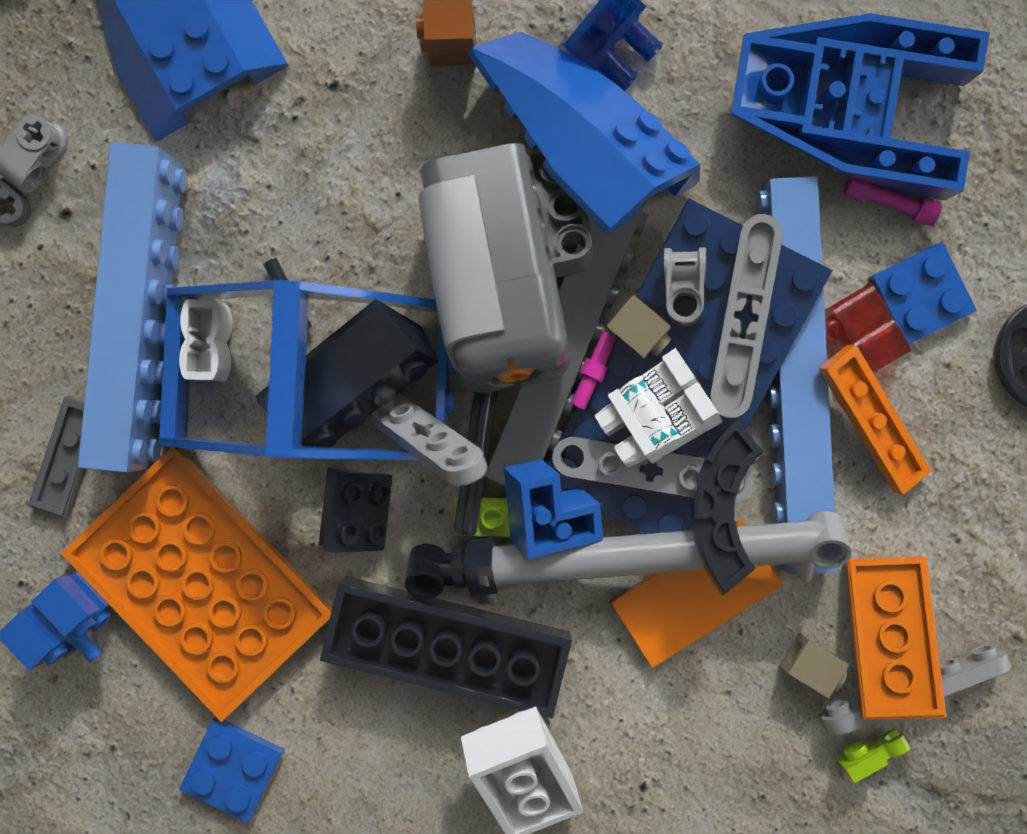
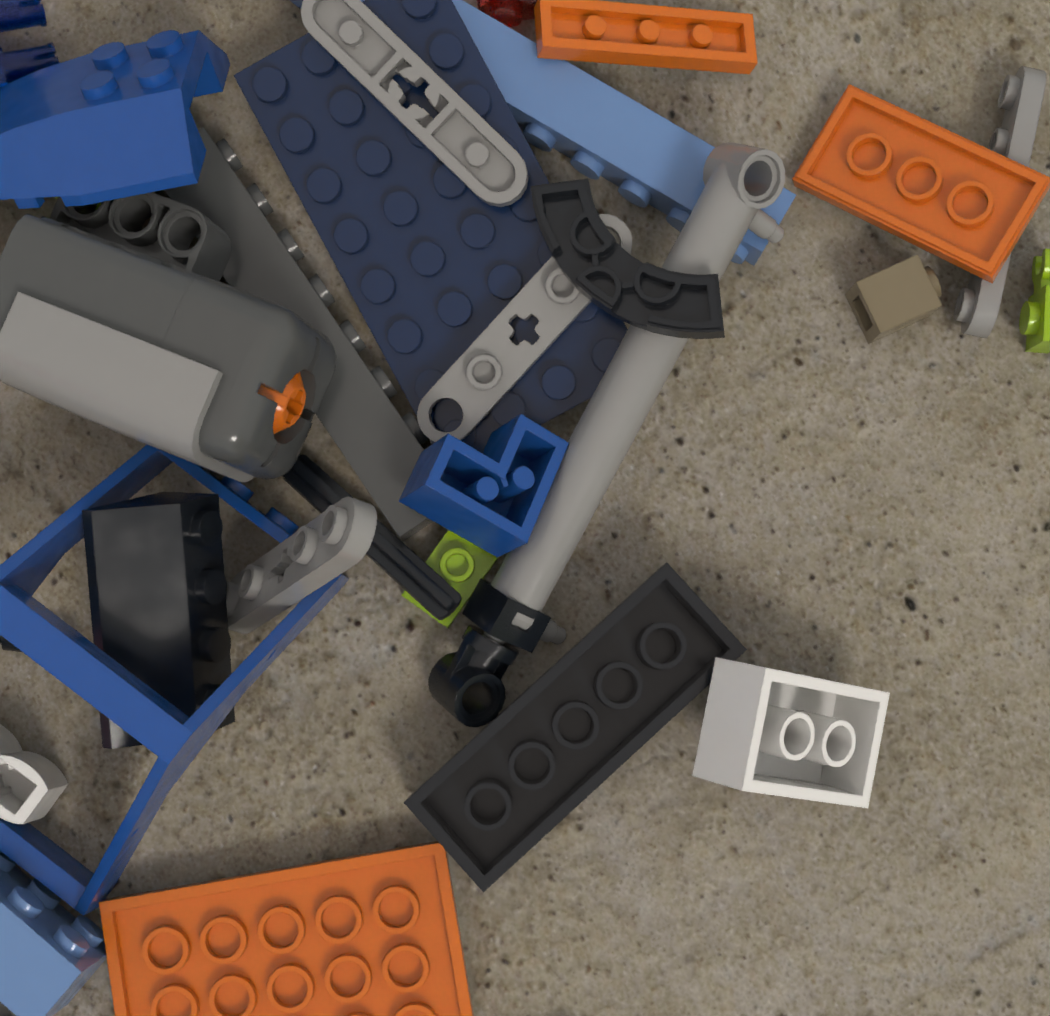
camera: 60 degrees left, 5 degrees down
(355, 511) = (333, 727): black bracket -> none
(594, 370) = (360, 320): dark pink bar -> none
(641, 328) = (345, 227): dark tan brick -> none
(660, 411) = (457, 269): white hips -> none
(680, 607) = (719, 401): orange tile -> none
(685, 278) = (323, 137): light grey piece -> none

